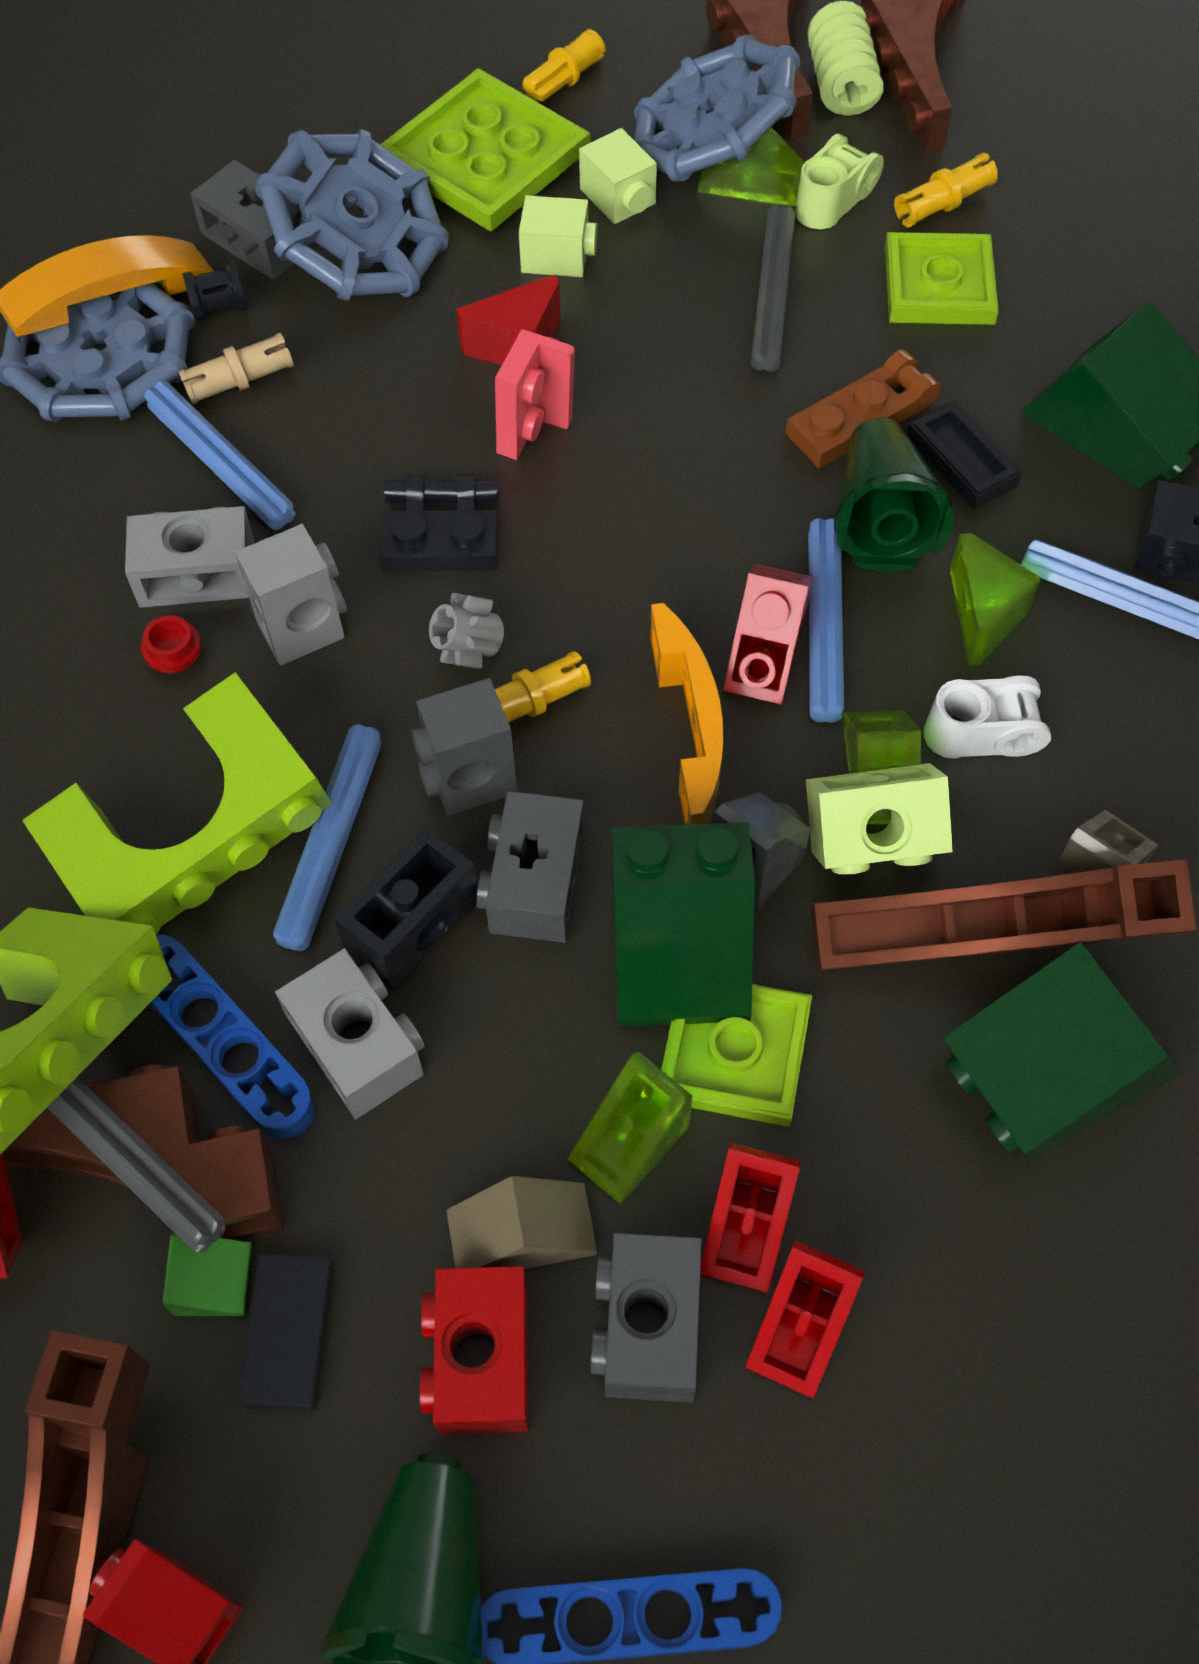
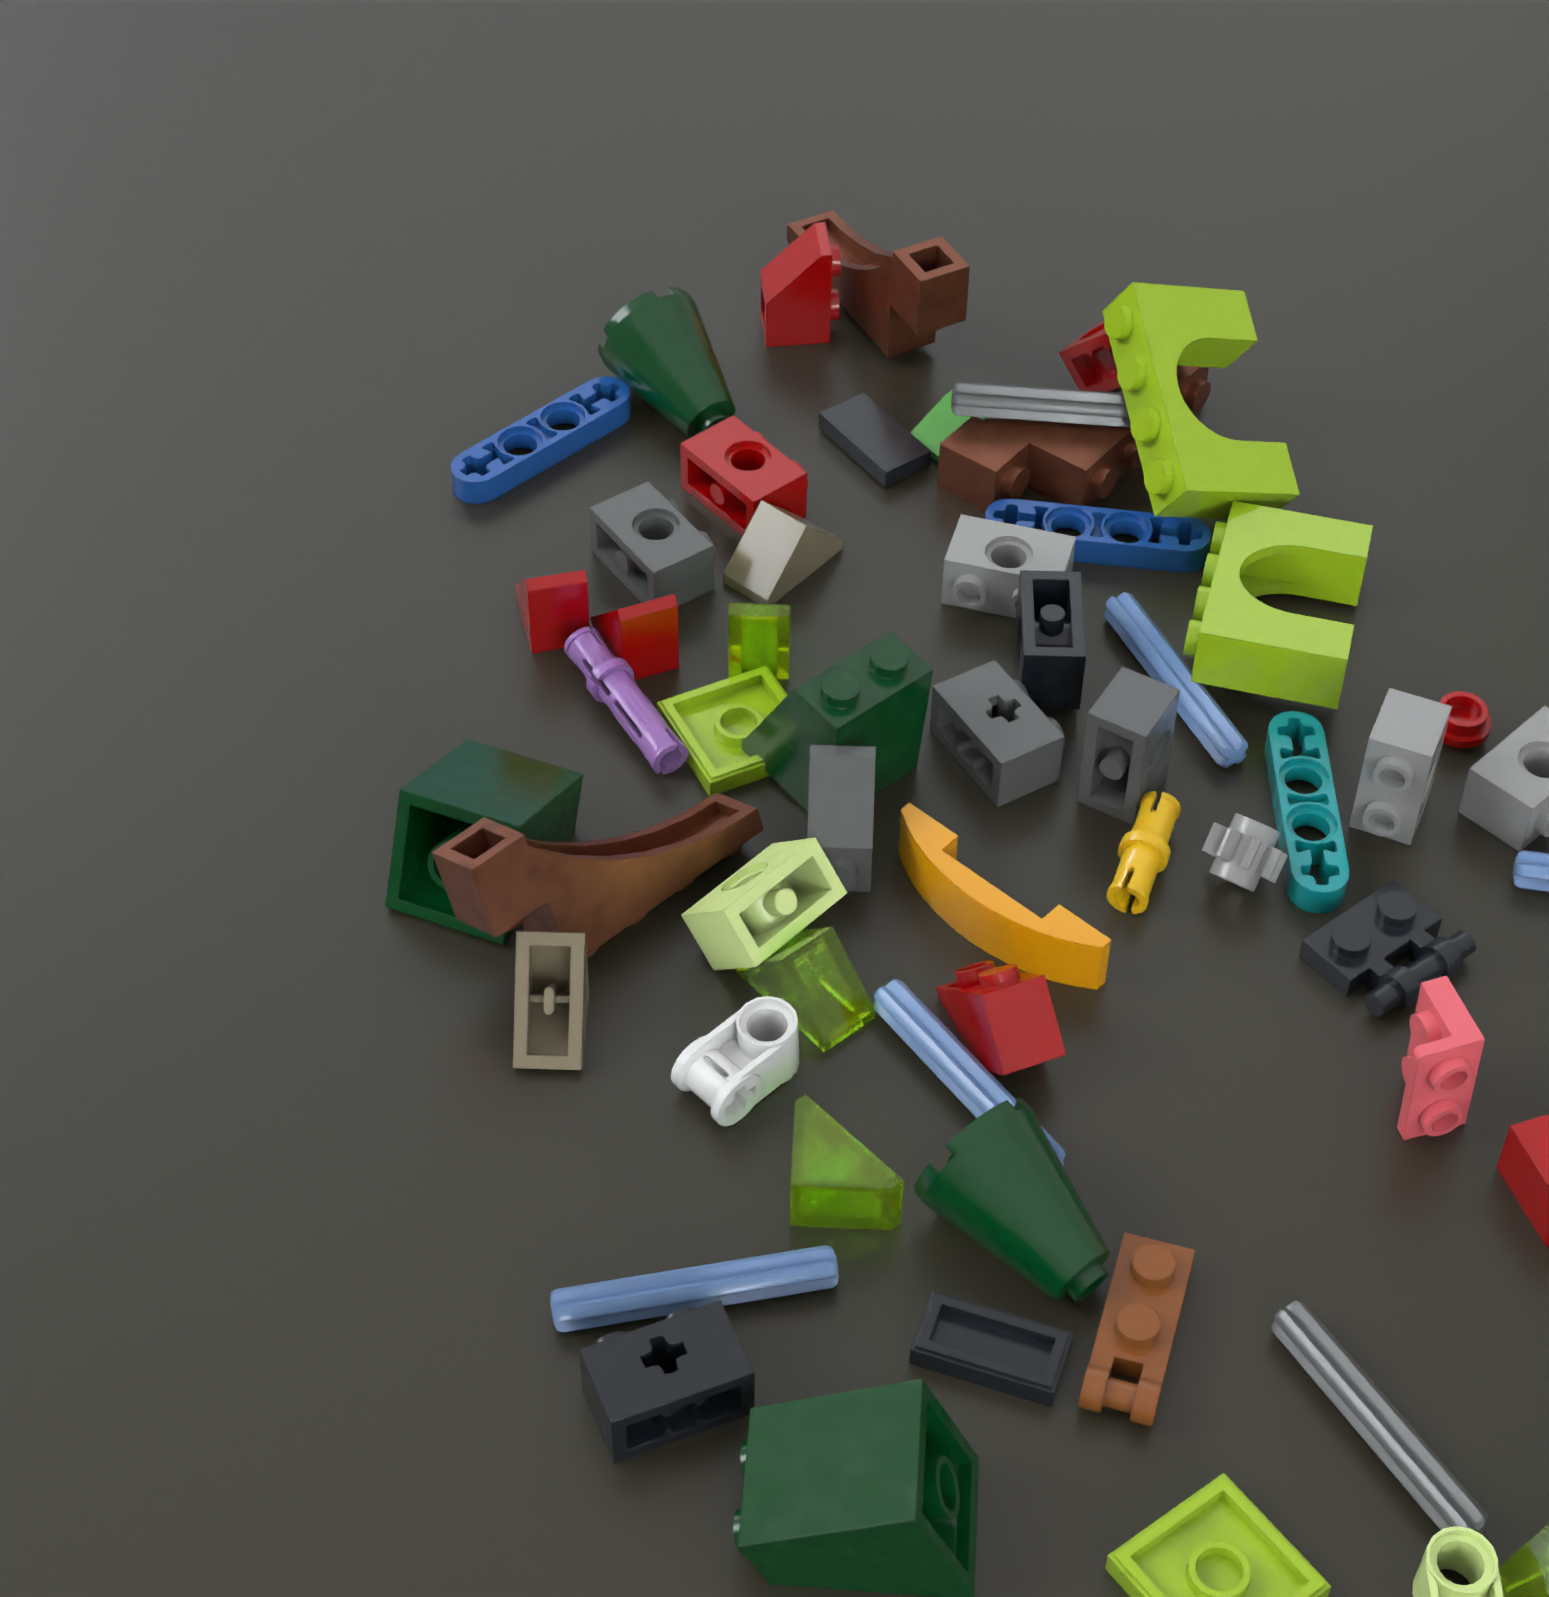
camera: 140 degrees right, 15 degrees down
(361, 651) = (1311, 809): none -> teal beam
(820, 1143) = (613, 683): none -> medium lavender pin

